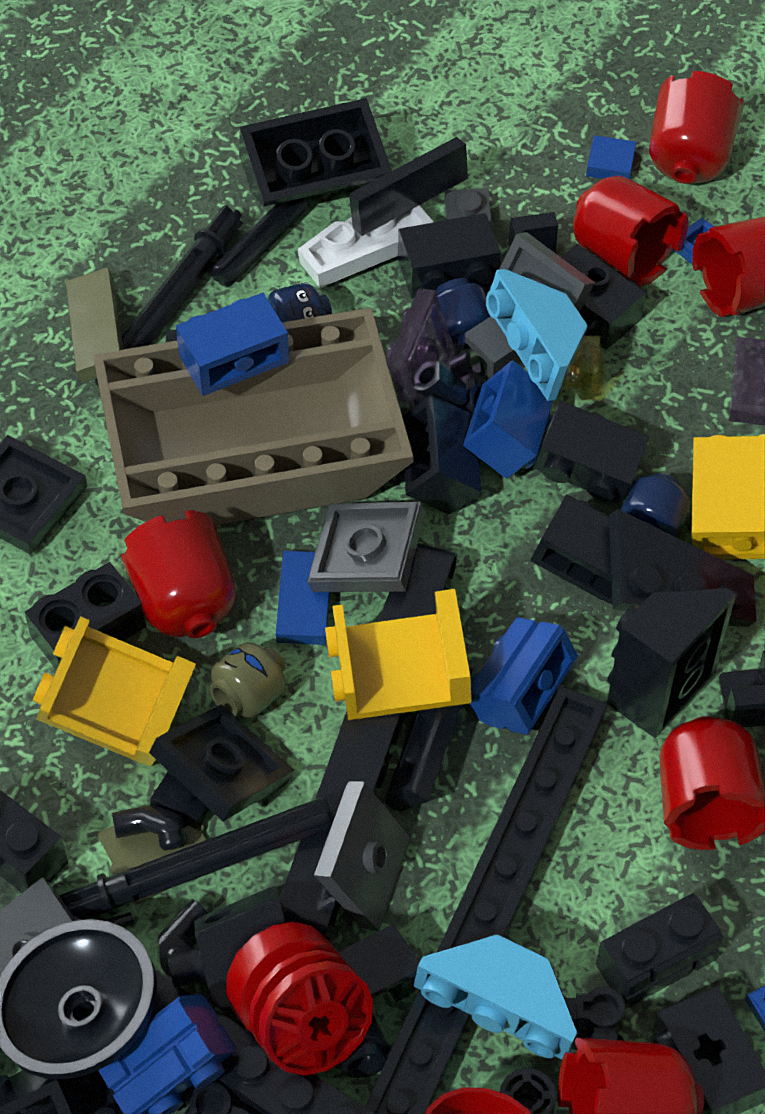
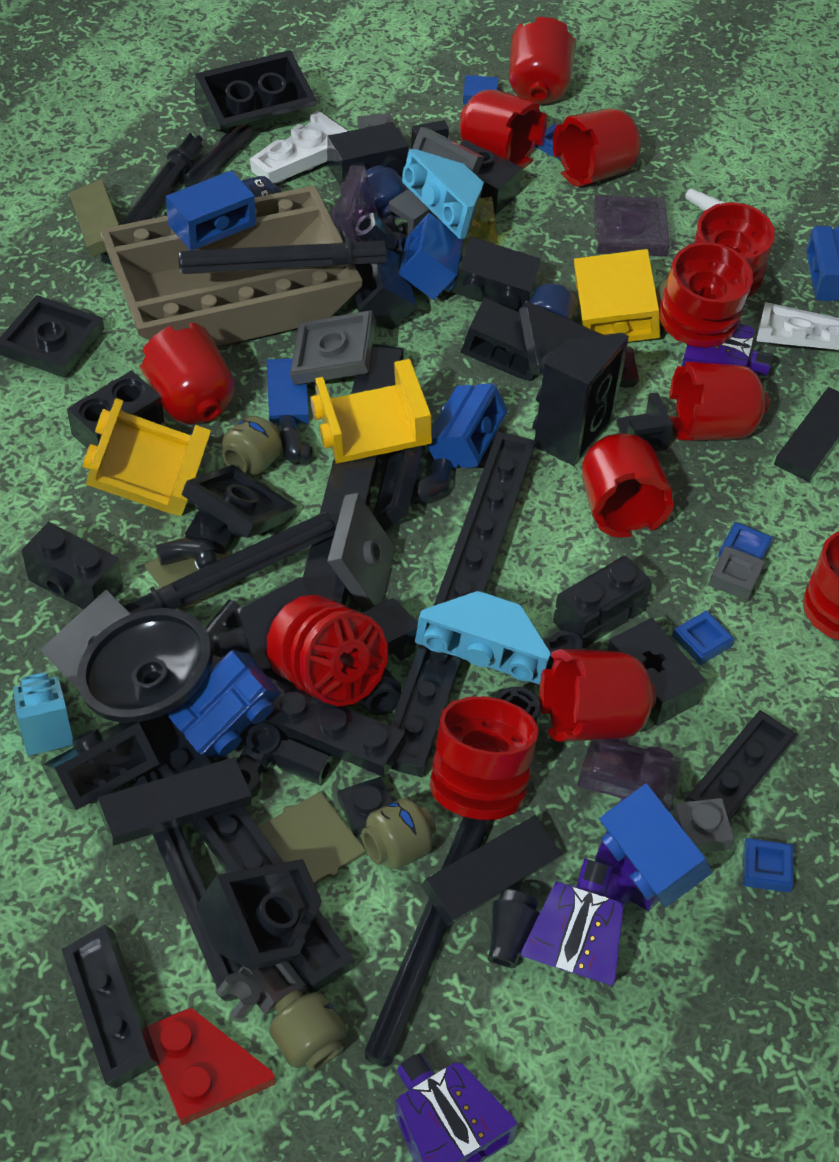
camera: 10 degrees left, 5 degrees down
(296, 662) = (290, 437): none -> black arm
(315, 419) = (282, 257): none -> black axle
(408, 186) = (330, 109): black tile -> none
(471, 755) = (434, 486): none -> black arm

